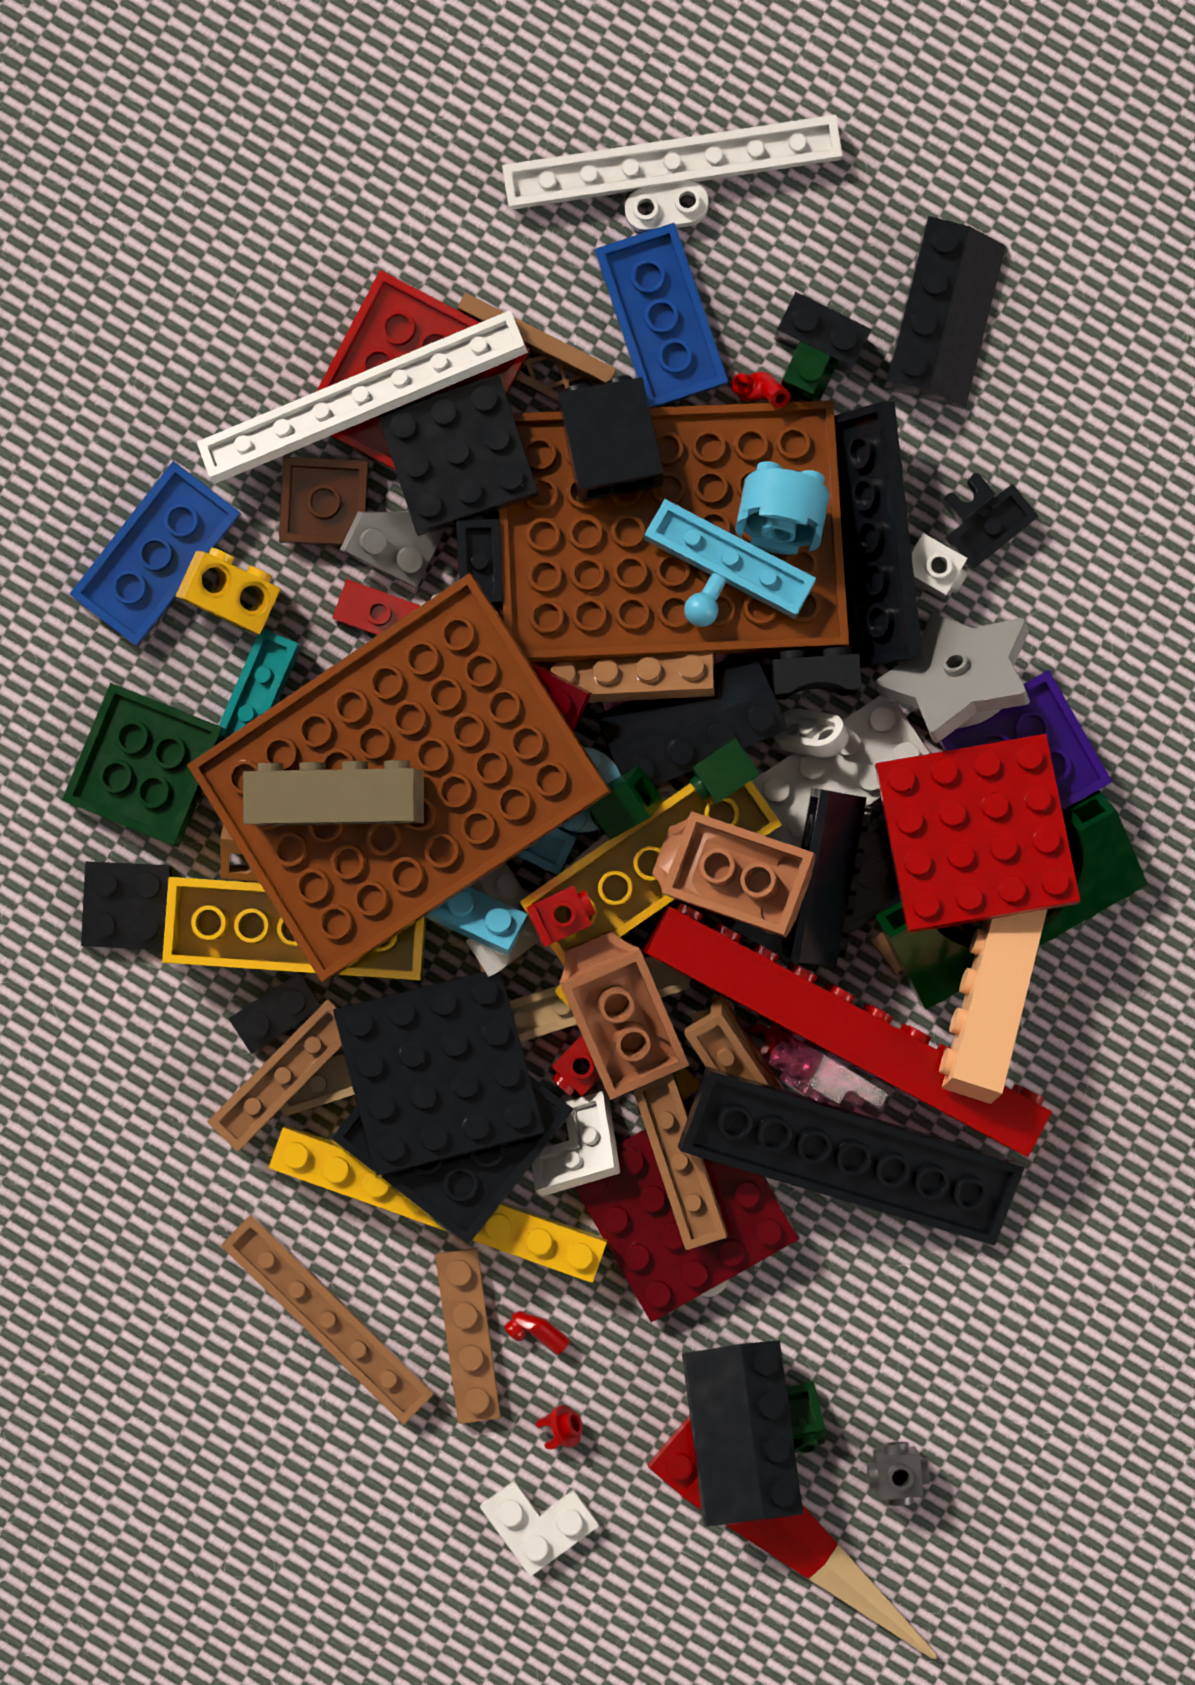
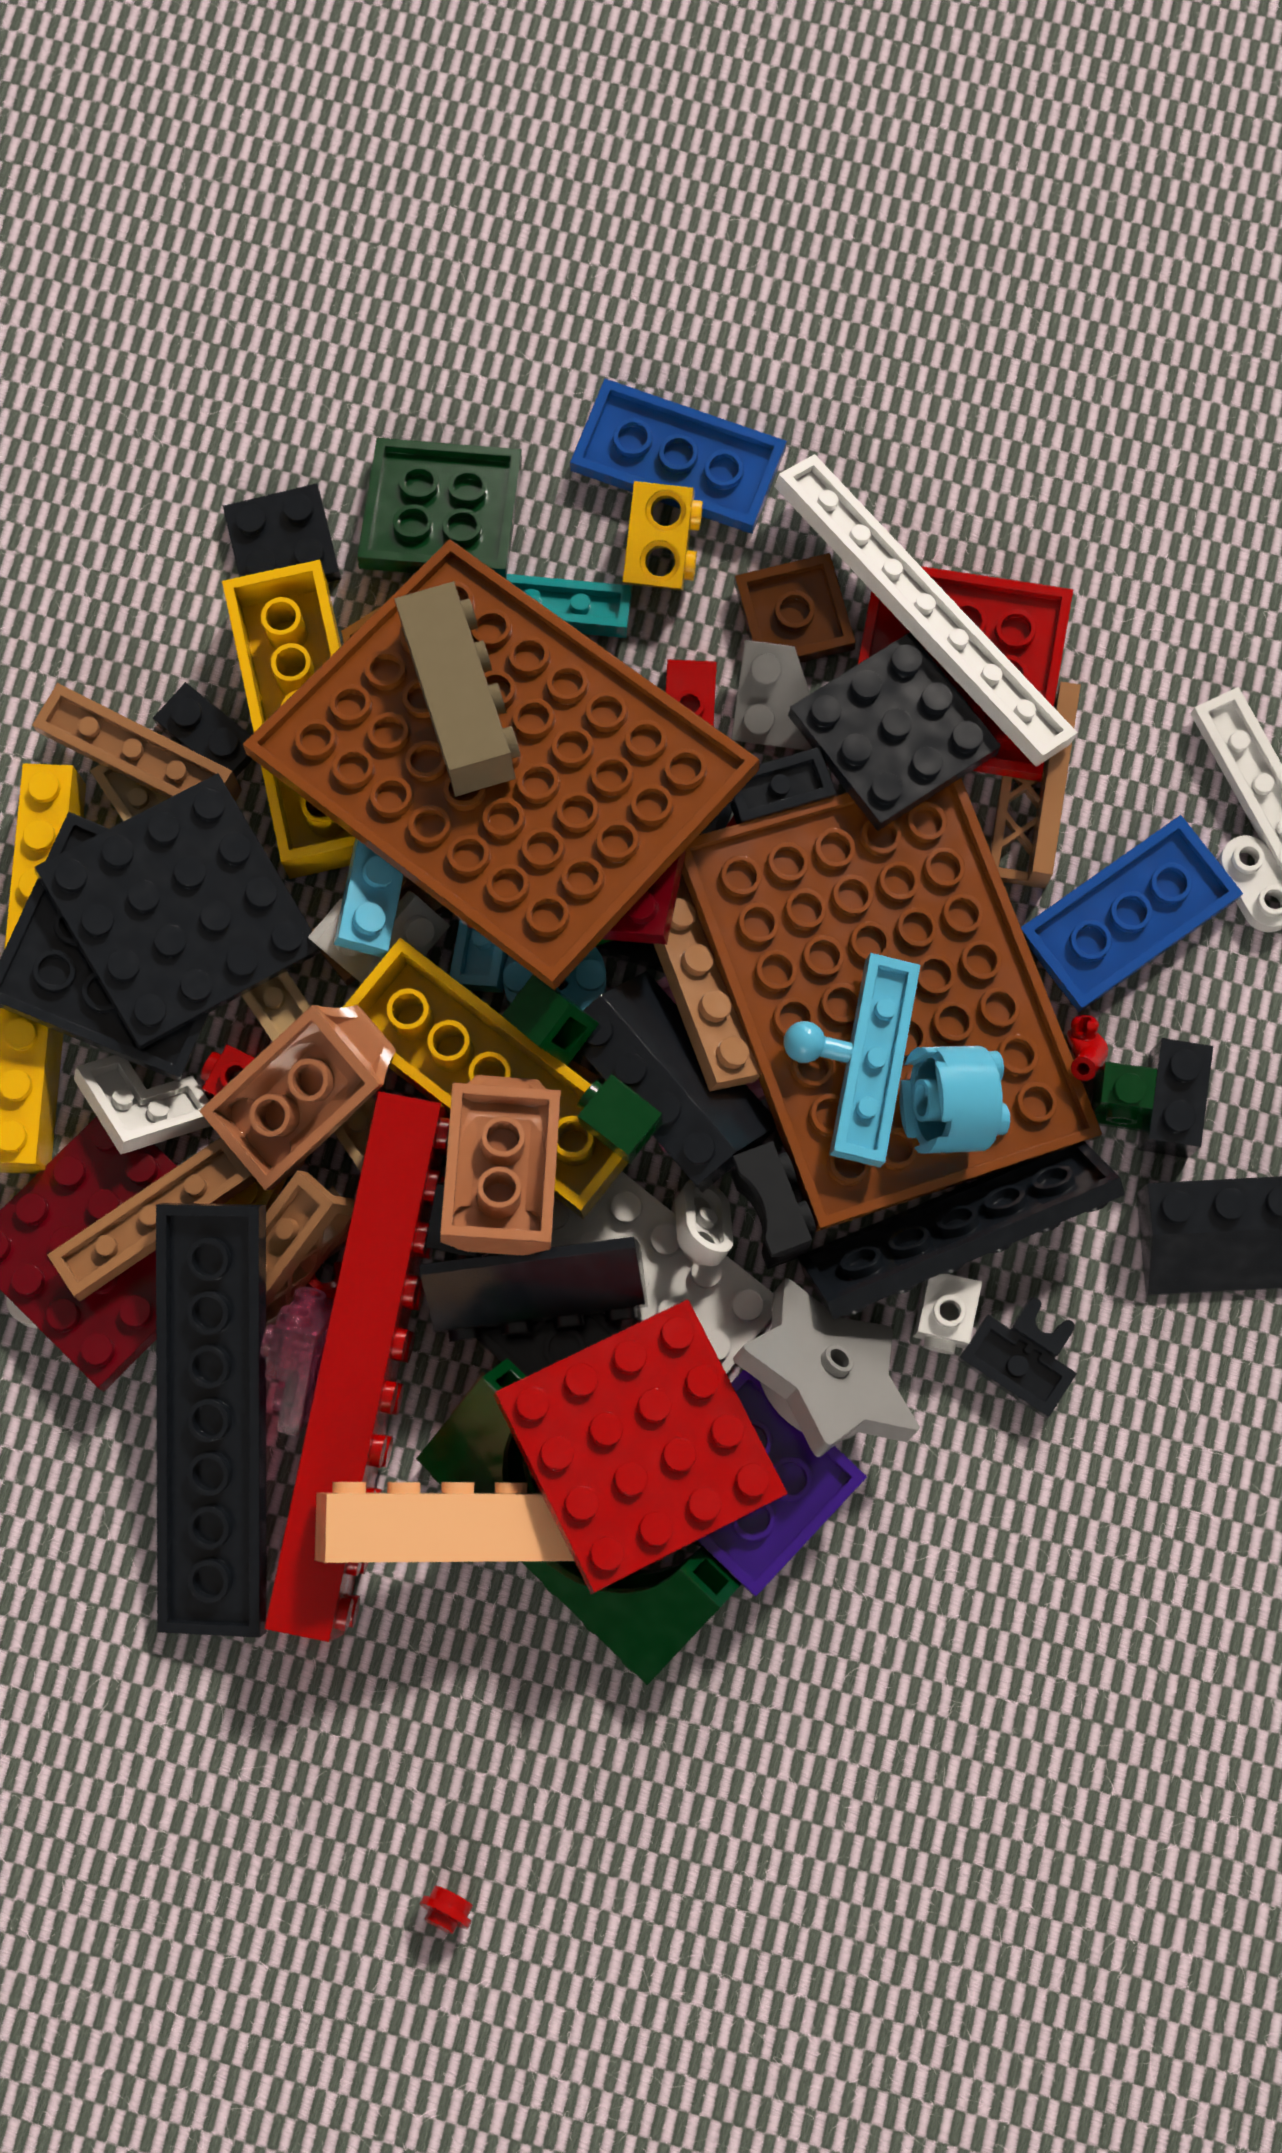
camera: 75 degrees right, 10 degrees down
(548, 927) = (382, 963): red brick -> none
(610, 438) = (969, 888): black brick -> none

